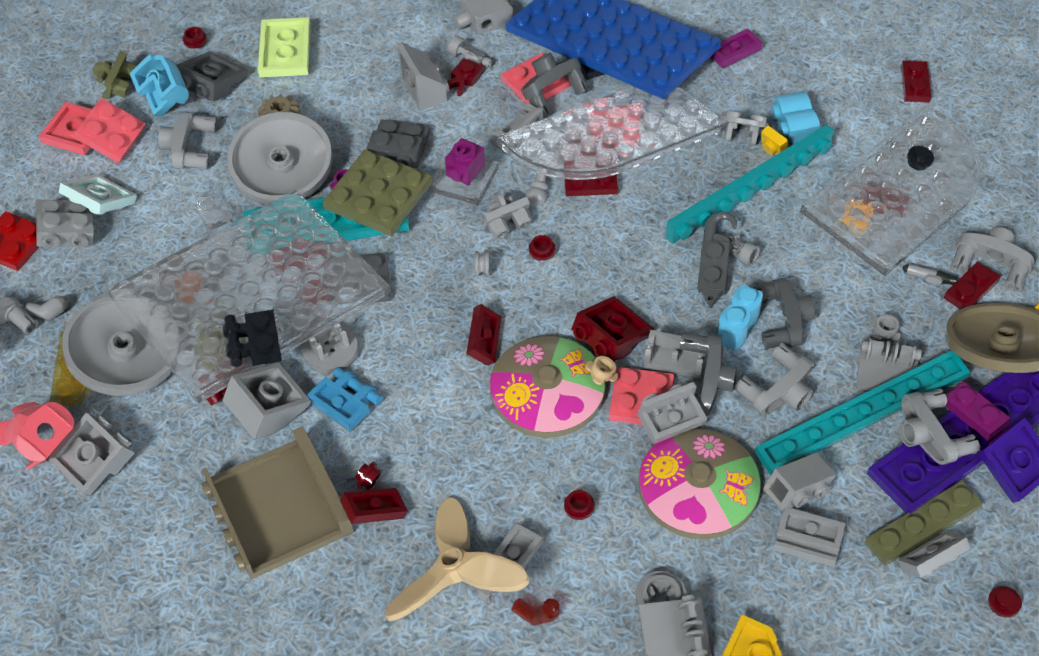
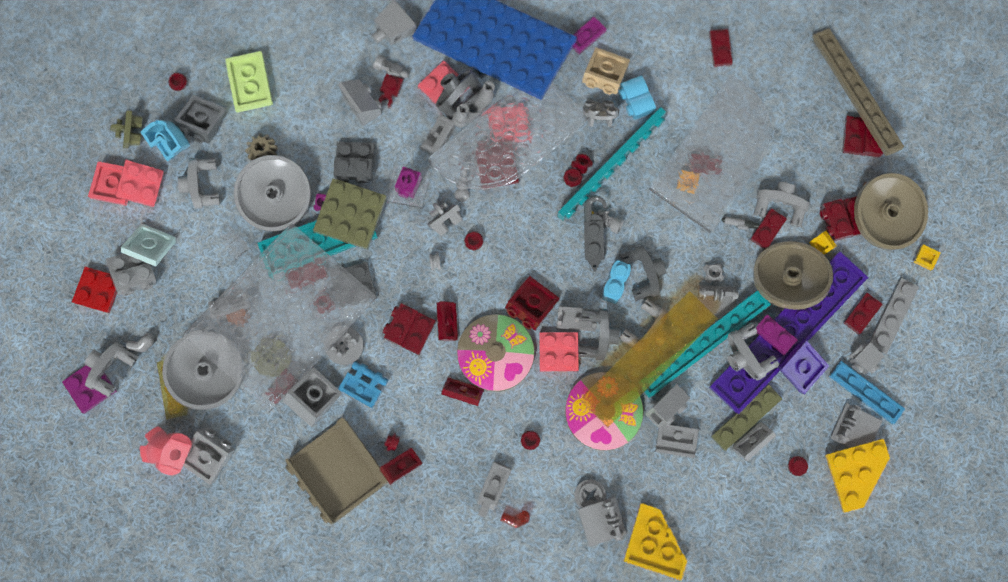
camera: 10 degrees left, 25 degrees up
(262, 338) = (301, 361): black plate -> none
(426, 338) = (408, 329): none -> dark red plate
(457, 565) = (456, 482): tan piece -> none
(482, 422) = (462, 391): none -> dark red plate
(560, 100) = (478, 103): none -> light grey connector
(602, 370) = (536, 341): tan plate -> none
(671, 412) = (581, 369): light grey bracket -> none
(693, 193) = (572, 177): none -> dark red plate
(709, 178) = (585, 160): none -> dark red plate
(754, 85) = (605, 71): none -> tan plate
(773, 141) = (623, 125): yellow plate -> none
(773, 414) = (648, 359): none -> clear yellow plate
(920, 157) = (728, 129): black plate -> none

